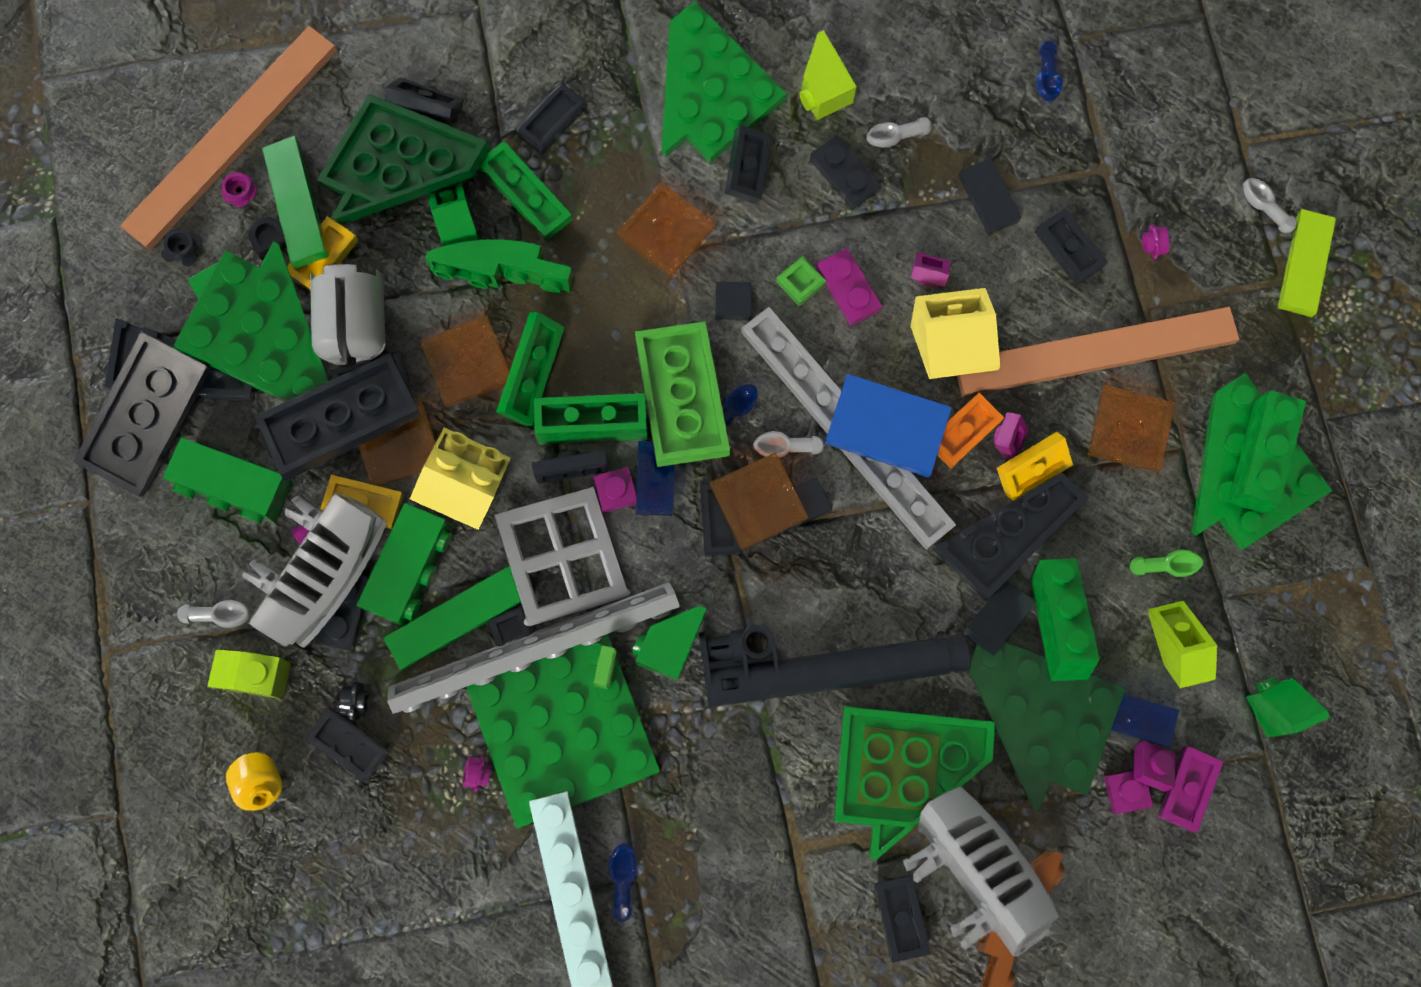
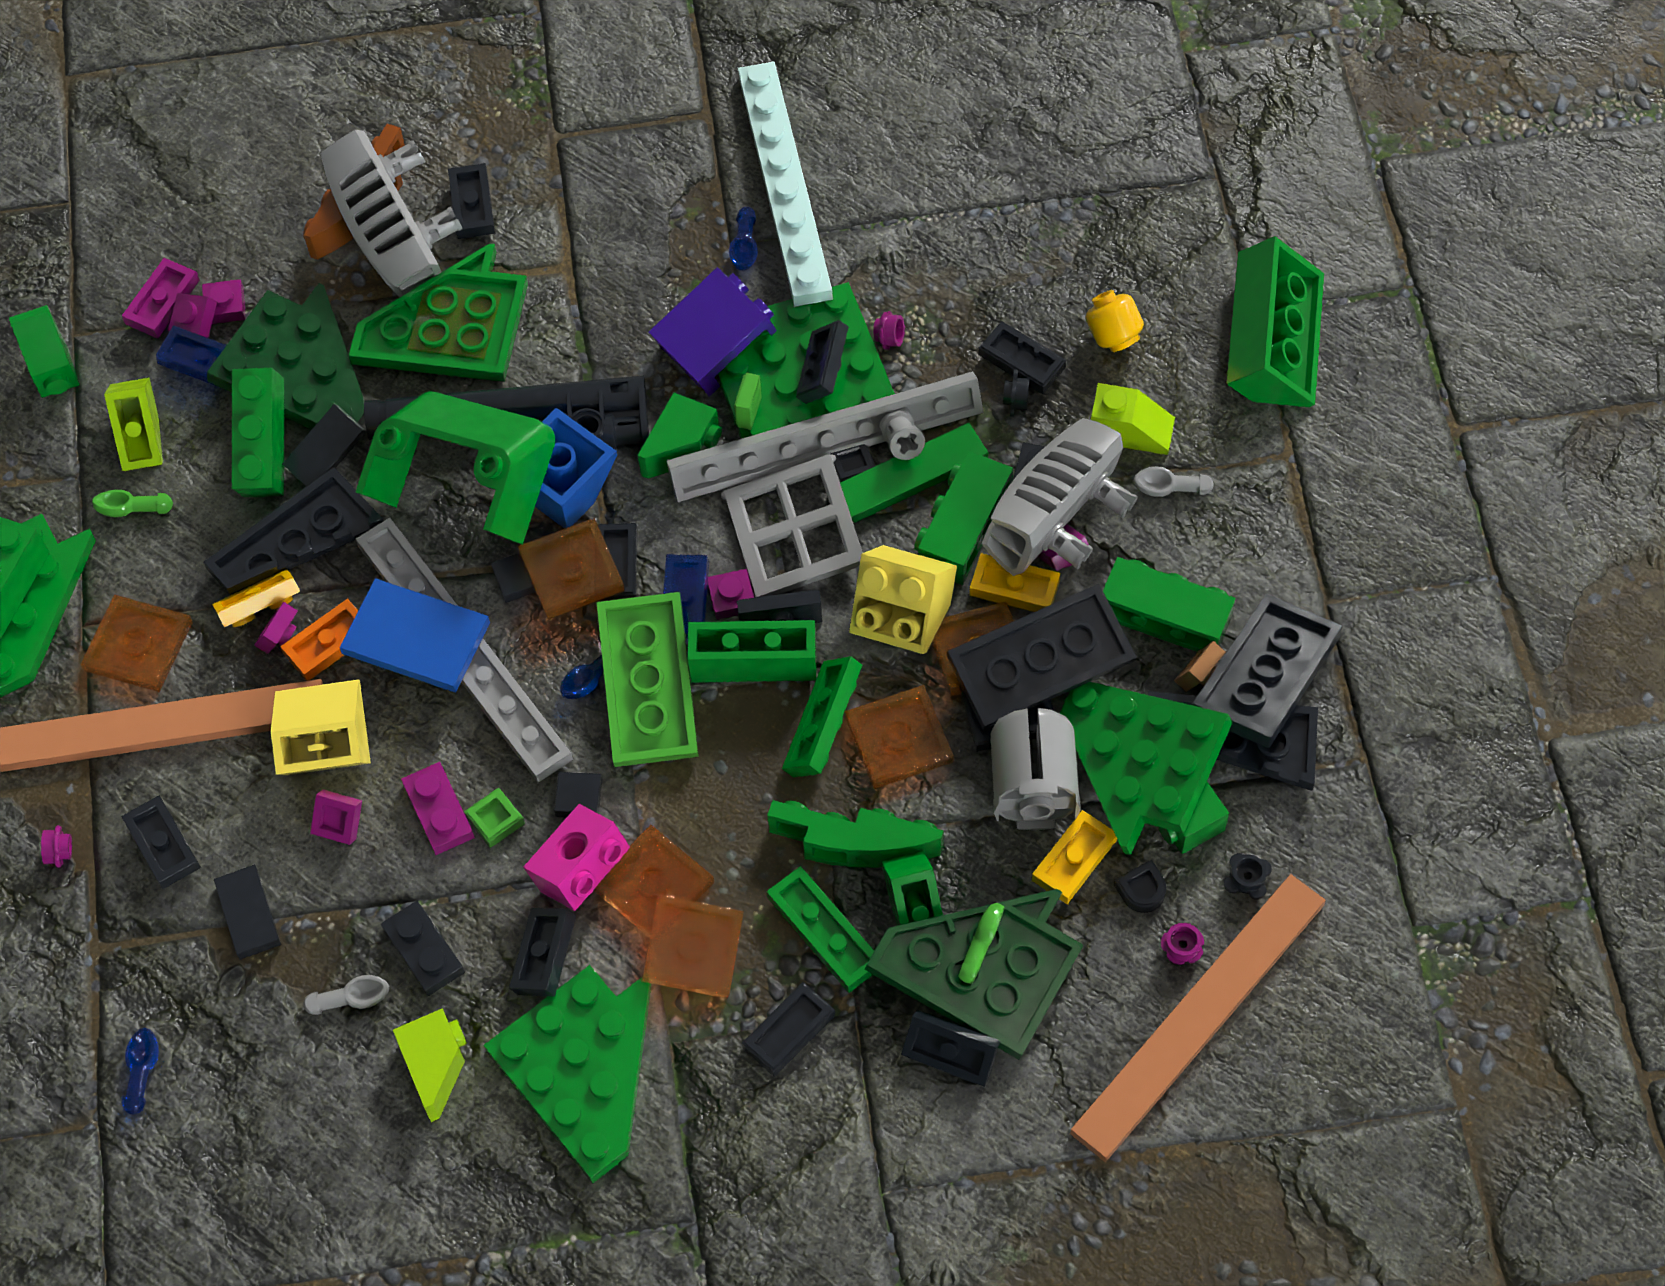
camera: 170 degrees left, 15 degrees down
(100, 787) = (1275, 325): none -> green slope
(203, 423) = (1200, 667): none -> medium nougat plate
(295, 202) = (1108, 917): green tile -> none
(391, 166) = (981, 941): none -> bright green piece
(461, 644) = (899, 440): none -> light grey bush
(536, 714) = (822, 362): none -> black plate
(629, 173) = (692, 946): none -> clear orange tile
(643, 754) = (712, 327): none -> dark purple panel
(744, 226) = (576, 857): none -> dark pink brick
(777, 594) = (574, 470): none -> blue slope
(781, 444) = (542, 634): light grey piece -> none
(857, 599) = (509, 458): none -> green windscreen

